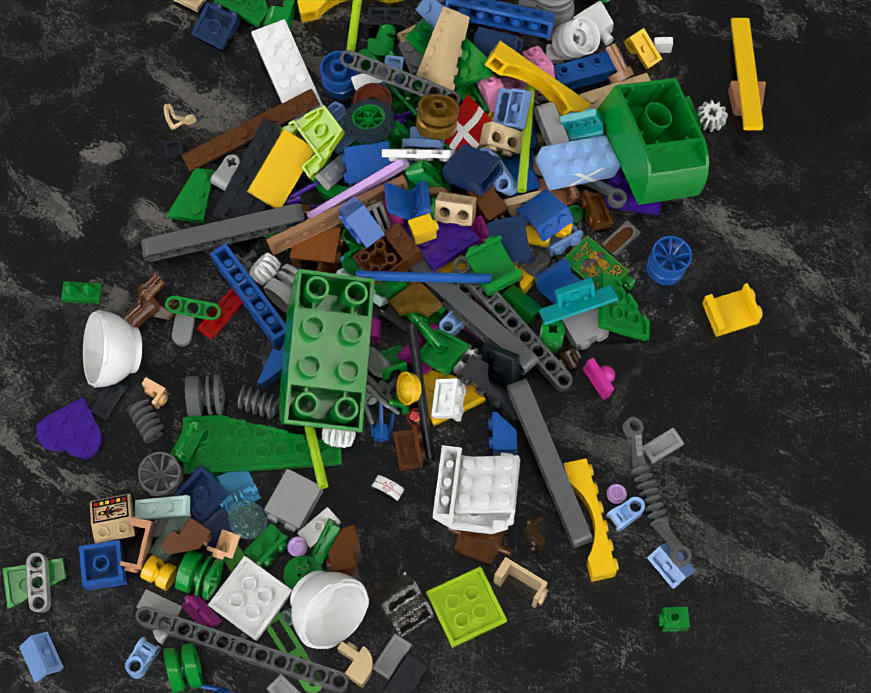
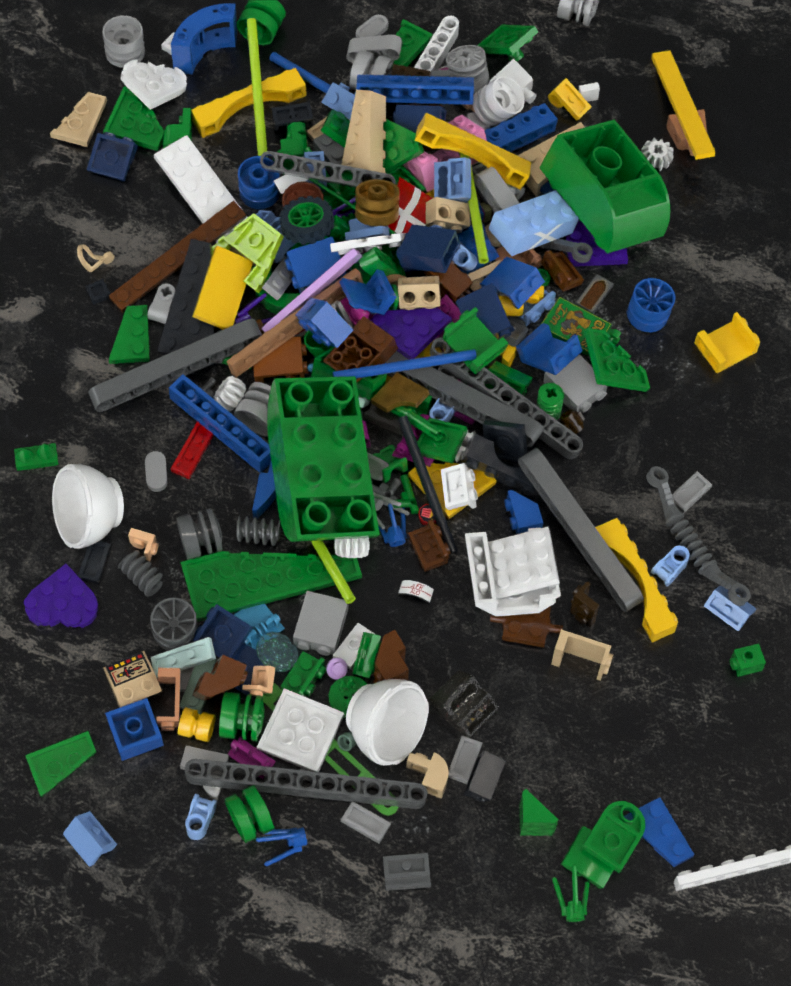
camera: 15 degrees left, 5 degrees down
(42, 592) = (65, 750): light grey beam -> none
(148, 305) = (113, 451): reddish brown wheel -> none
(183, 308) = (174, 443): green beam -> none
(187, 442) = (193, 583): green hinge -> none
(408, 388) = (414, 483): yellow hat -> none
(423, 229) = (391, 317): yellow brick -> none
(466, 607) = (530, 693): lime plate -> none
(577, 299) = (568, 358): teal bracket -> none
(583, 124) = (530, 183): teal bracket -> none
(600, 377) = (609, 436): dark pink tile -> none
(616, 494) = (656, 549): lavender plate -> none
(622, 70) = (549, 116): medium nougat piece -> none

